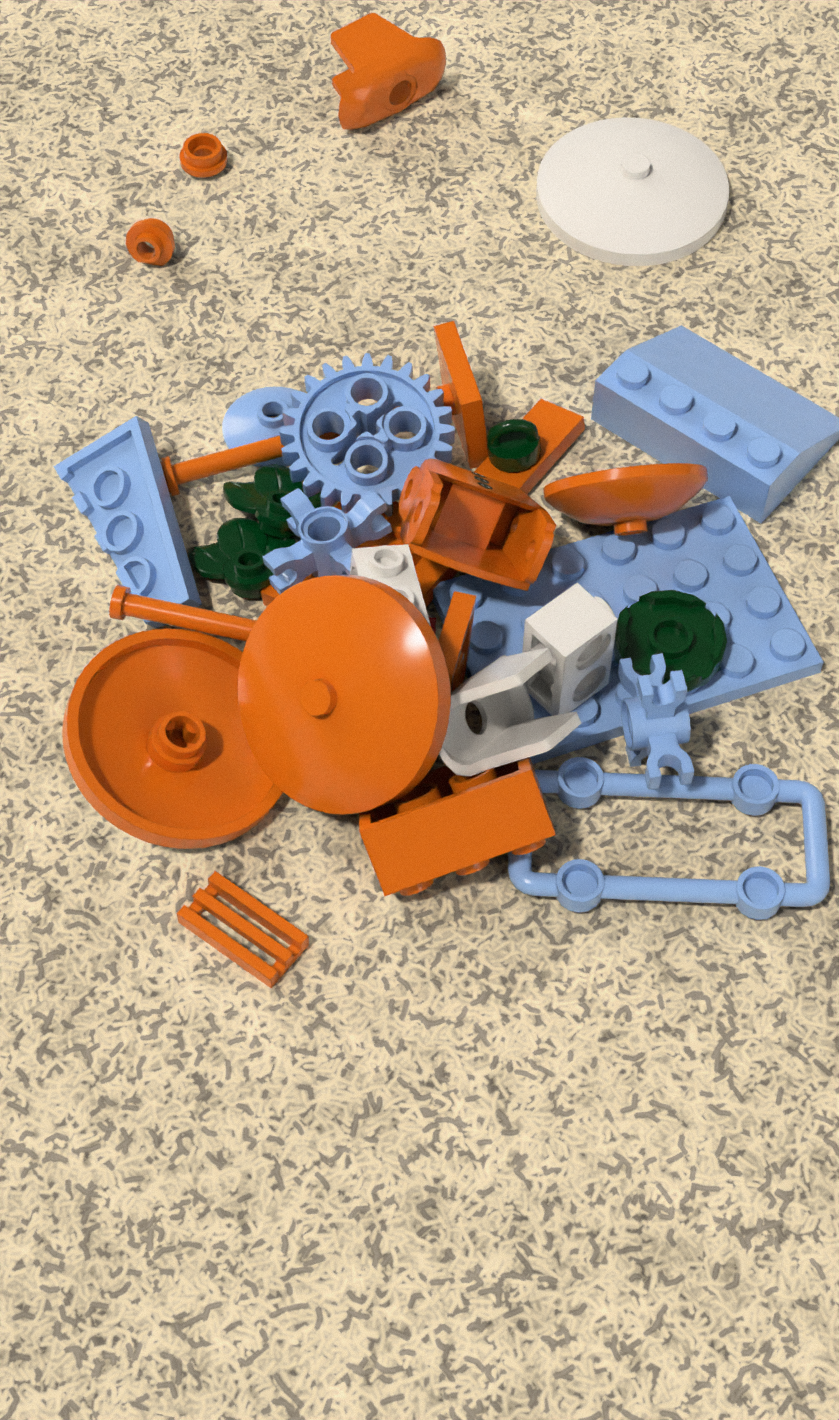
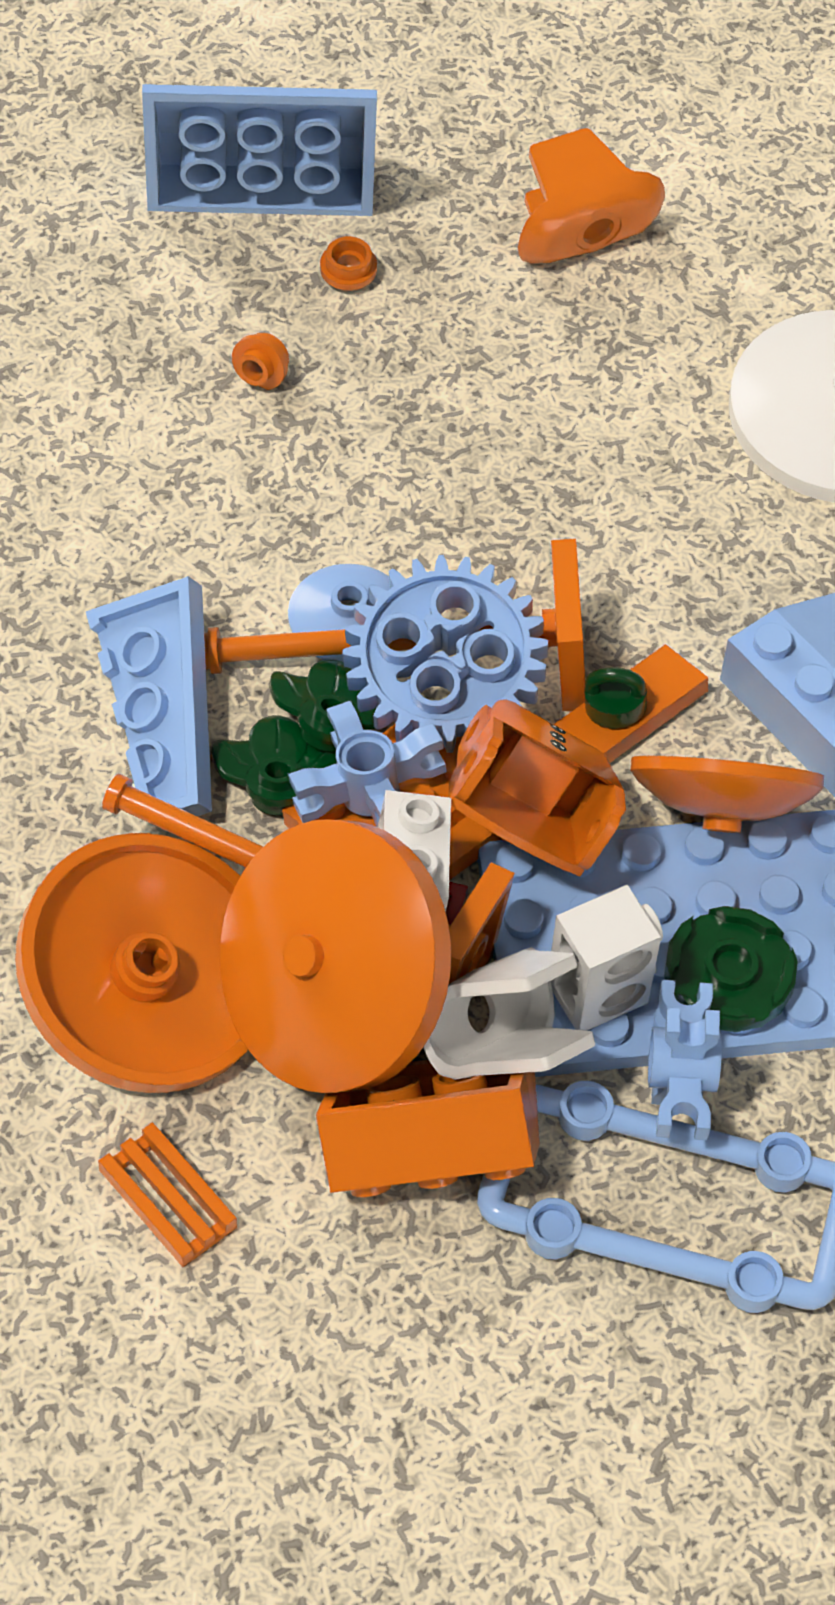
camera: 10 degrees right, 0 degrees up
(110, 73) = (259, 149): none -> light blue slope

